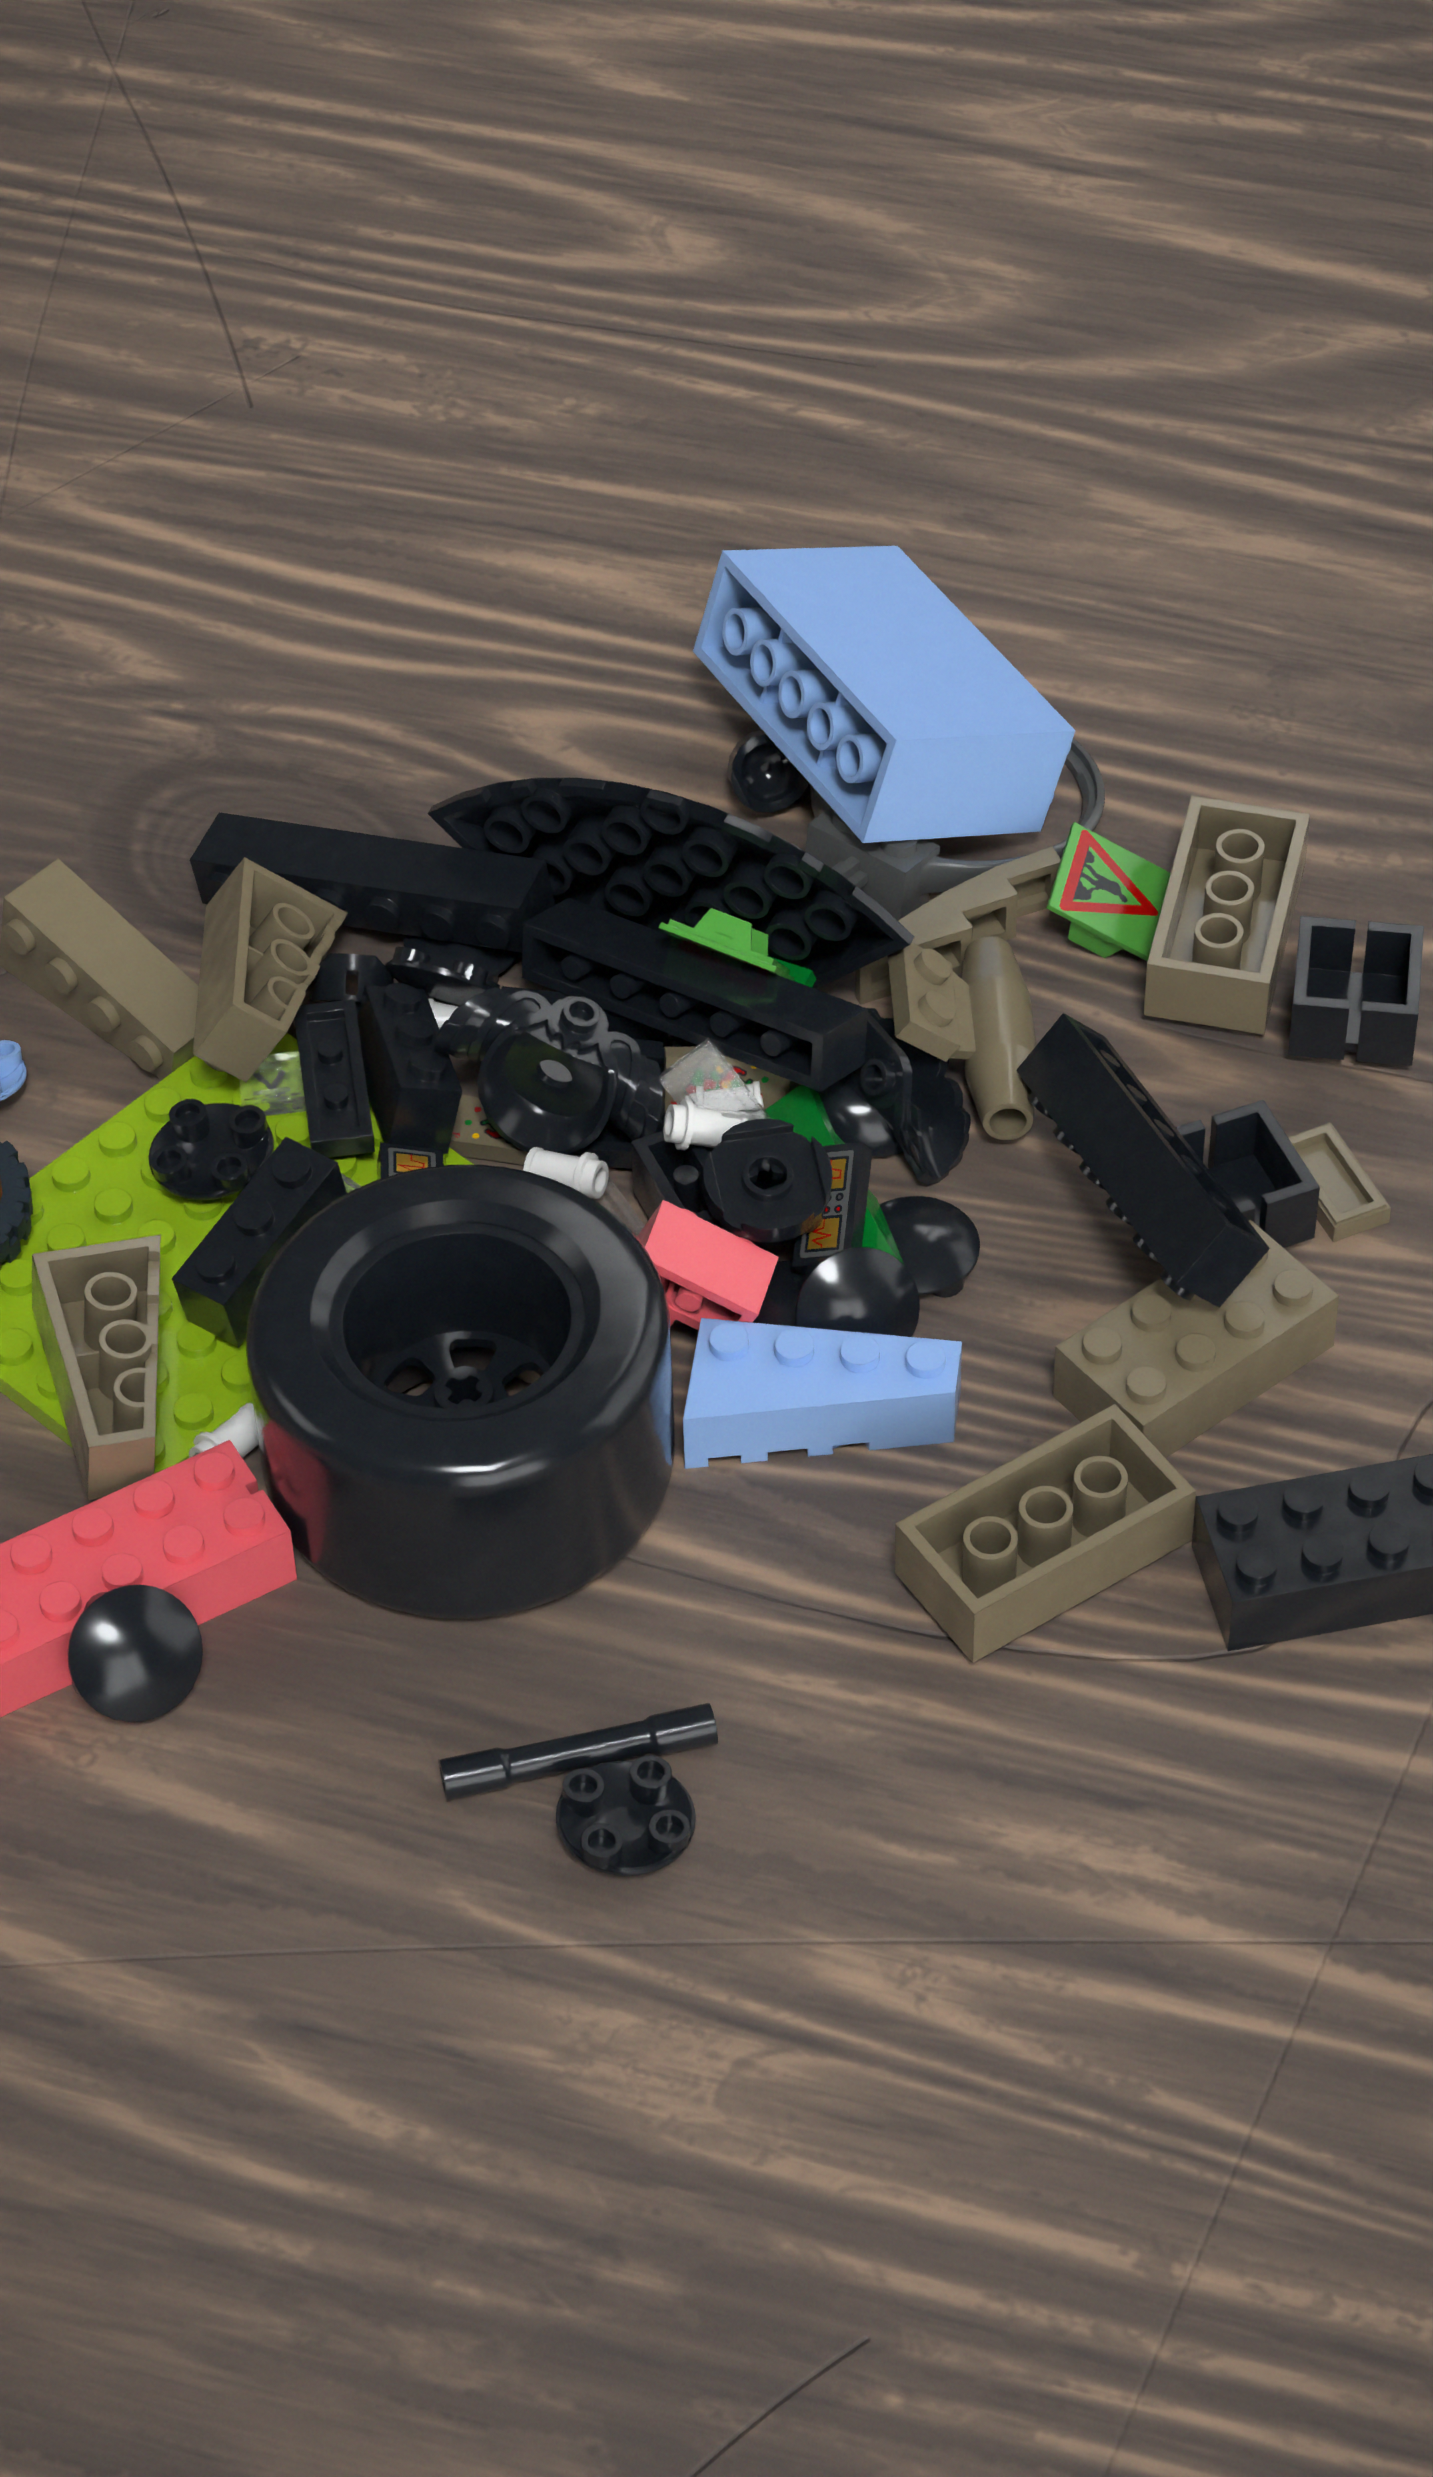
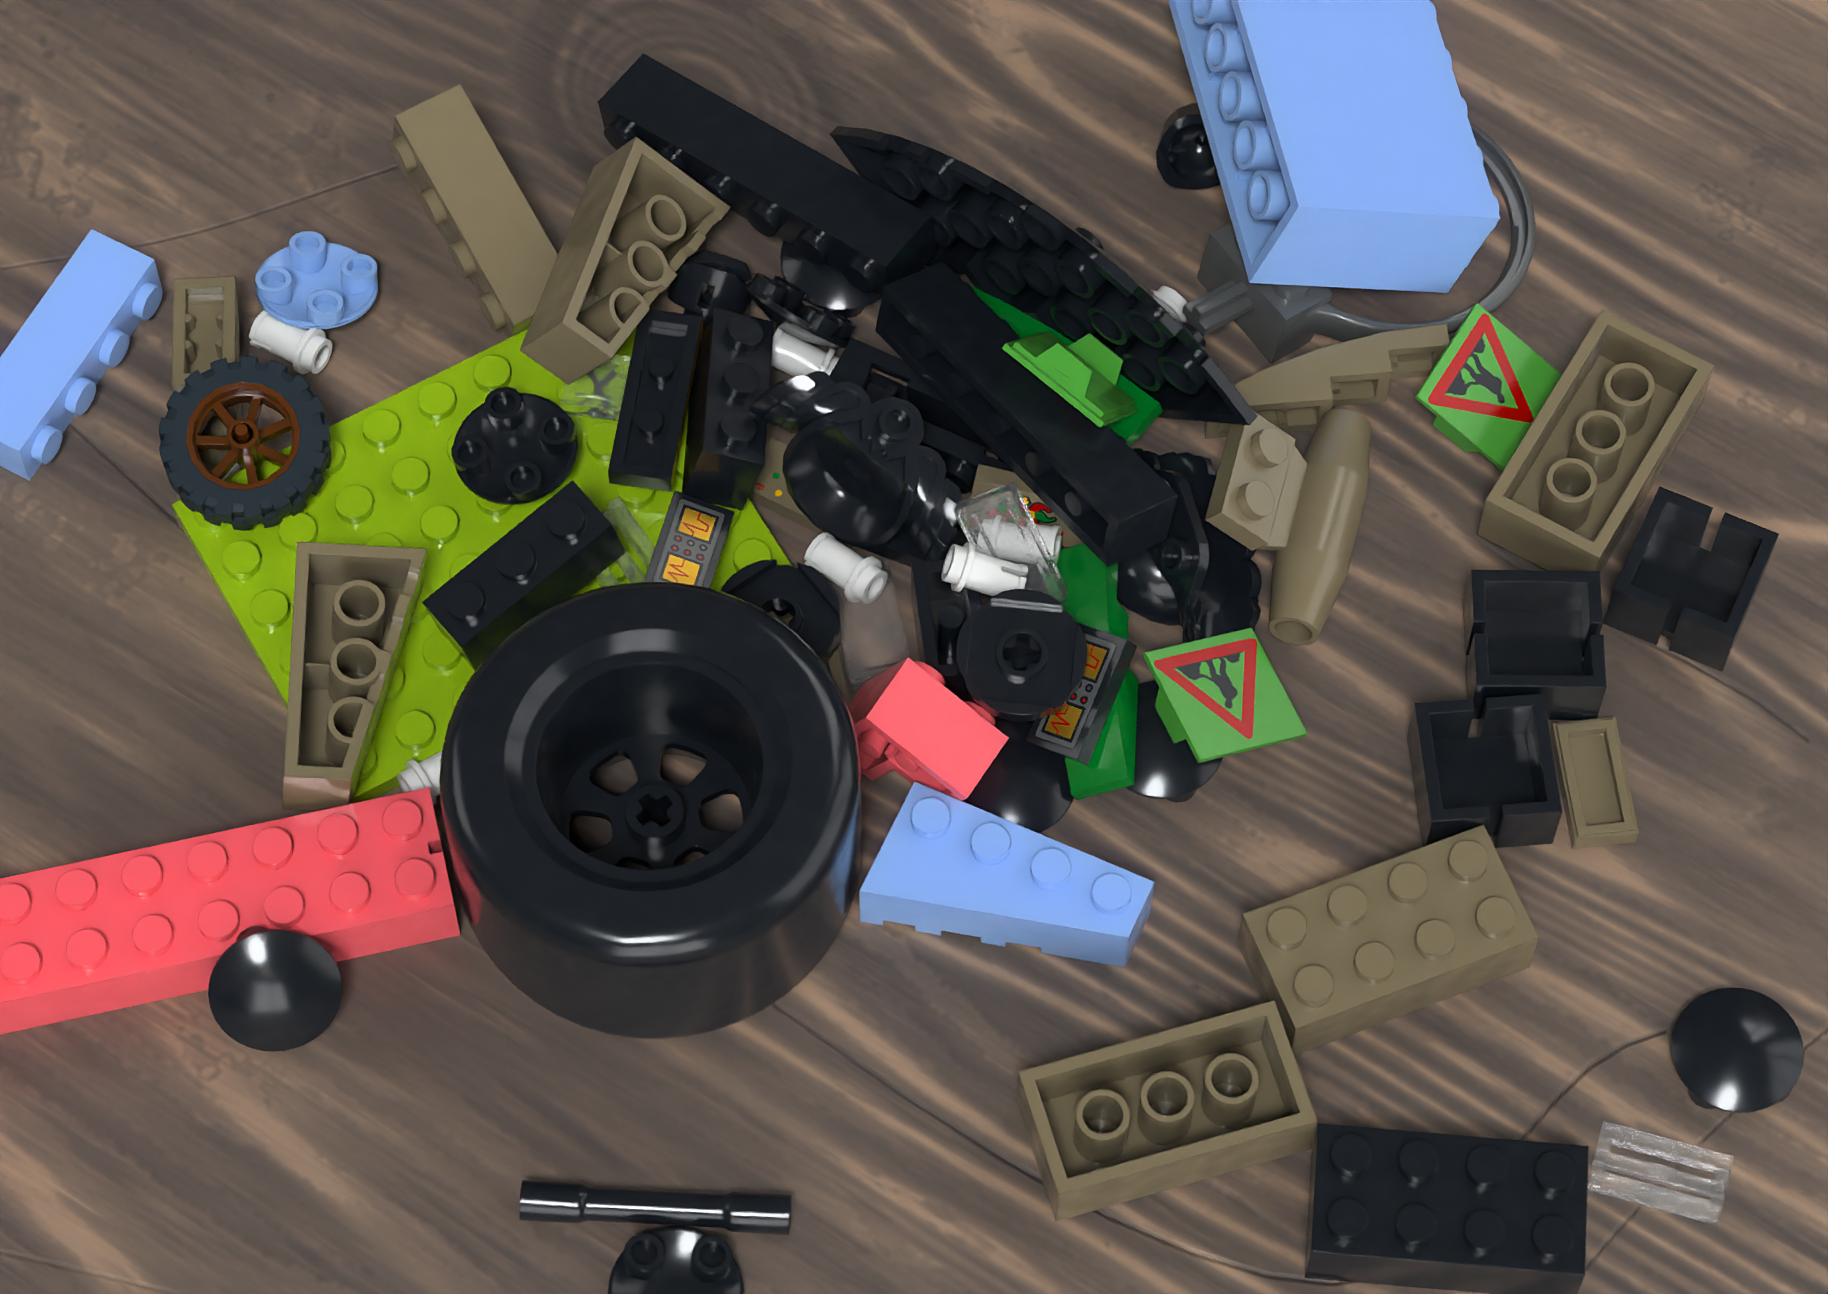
camera: 15 degrees right, 15 degrees up
(859, 1293) = (1074, 802): black dish -> none
(961, 1187) = (1222, 696): none -> bright green piece
(1141, 1163) = (1392, 738): black brick -> none
(1232, 1059) = (1530, 638): none -> black piece

